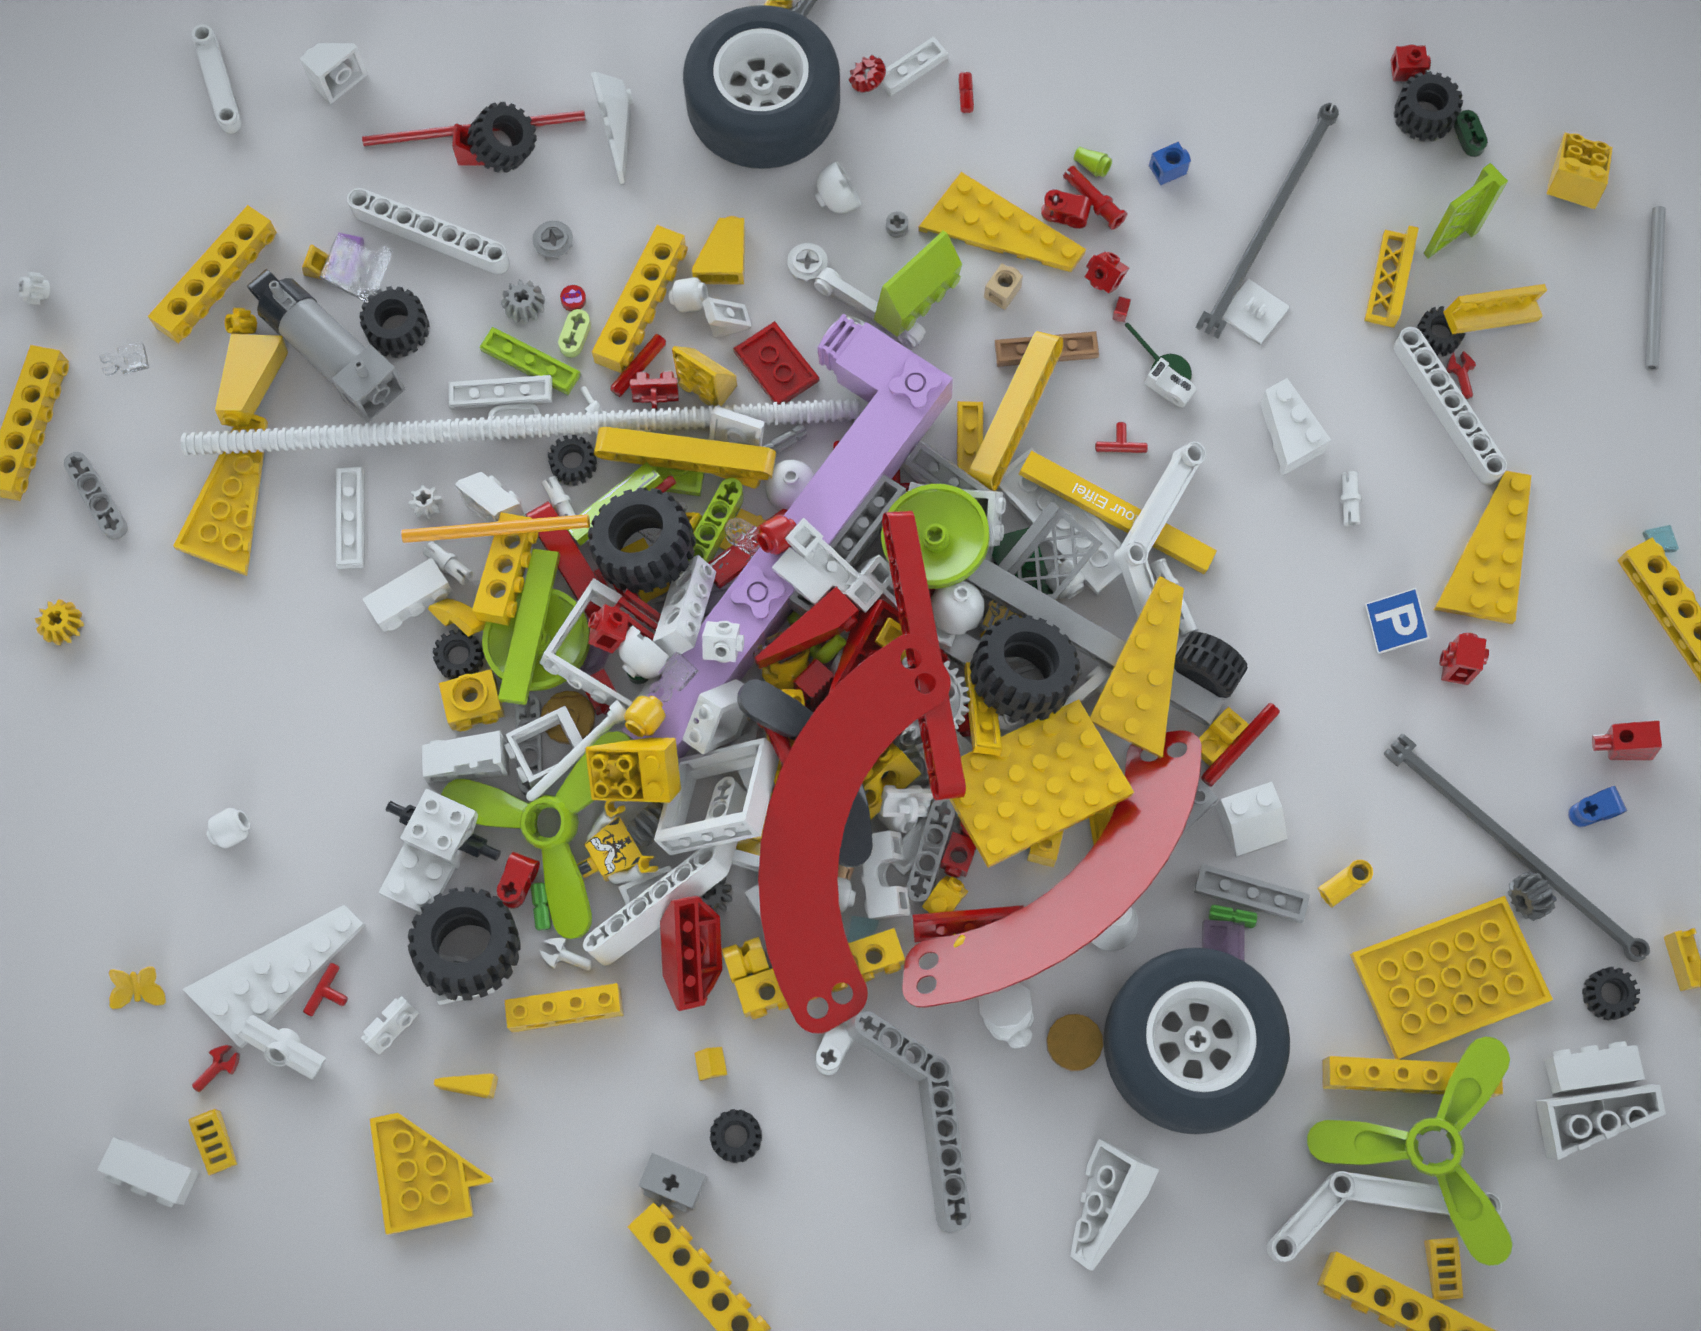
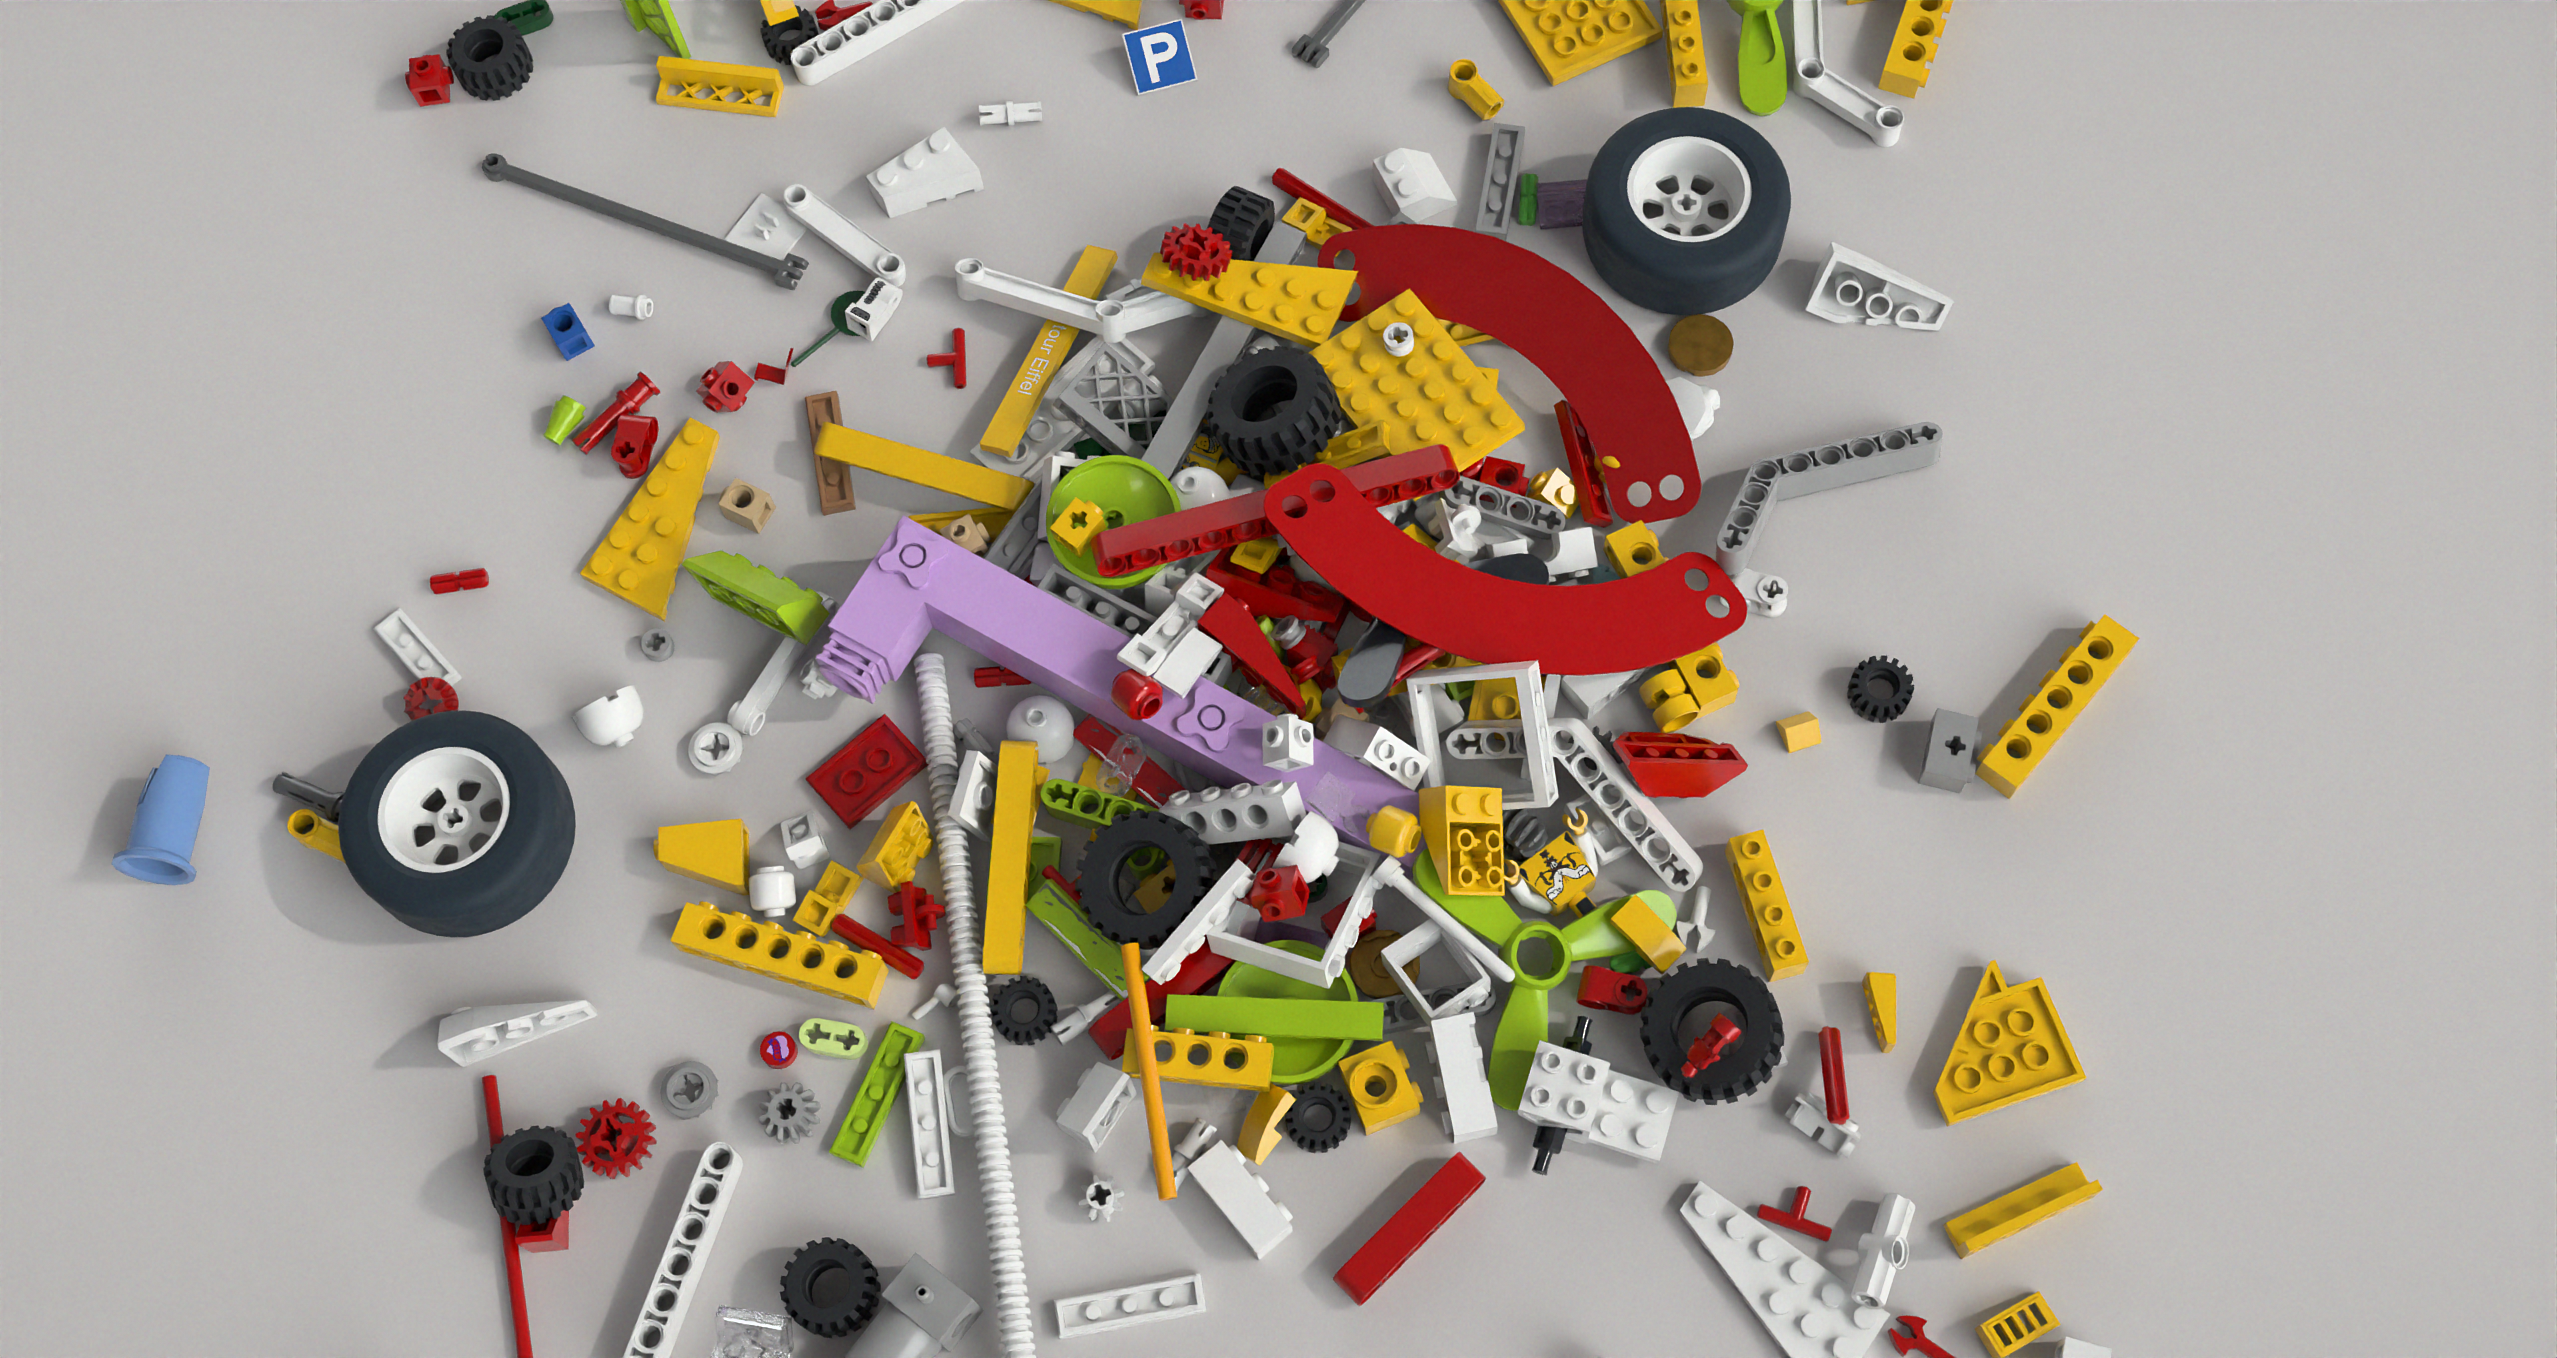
camera: 90 degrees left, 5 degrees down
(295, 1162) = (2020, 1210): none -> yellow fence
(366, 710) = (1409, 1228): none -> red beam
(420, 1034) = (1833, 1075): none -> red axle
(448, 939) = (1705, 1050): none -> red piece
(524, 191) = (607, 1123): none -> red gear
(551, 910) = (1649, 934): none -> yellow slope
(602, 577) = (1191, 932): none -> white plate
(678, 332) = (828, 899): none -> yellow slope
(791, 669) = (1307, 669): none -> red bush
(826, 659) = (1288, 632): none -> light grey bush
(925, 494) = (1078, 538): none -> yellow brick
(947, 436) = (967, 535): none -> tan brick
(1084, 765) = (1391, 345): none -> white bush
(1182, 628) = (1195, 252): none -> red gear
(1188, 214) = (631, 306): none -> white pin
(1240, 364) = (844, 235): none -> white piece

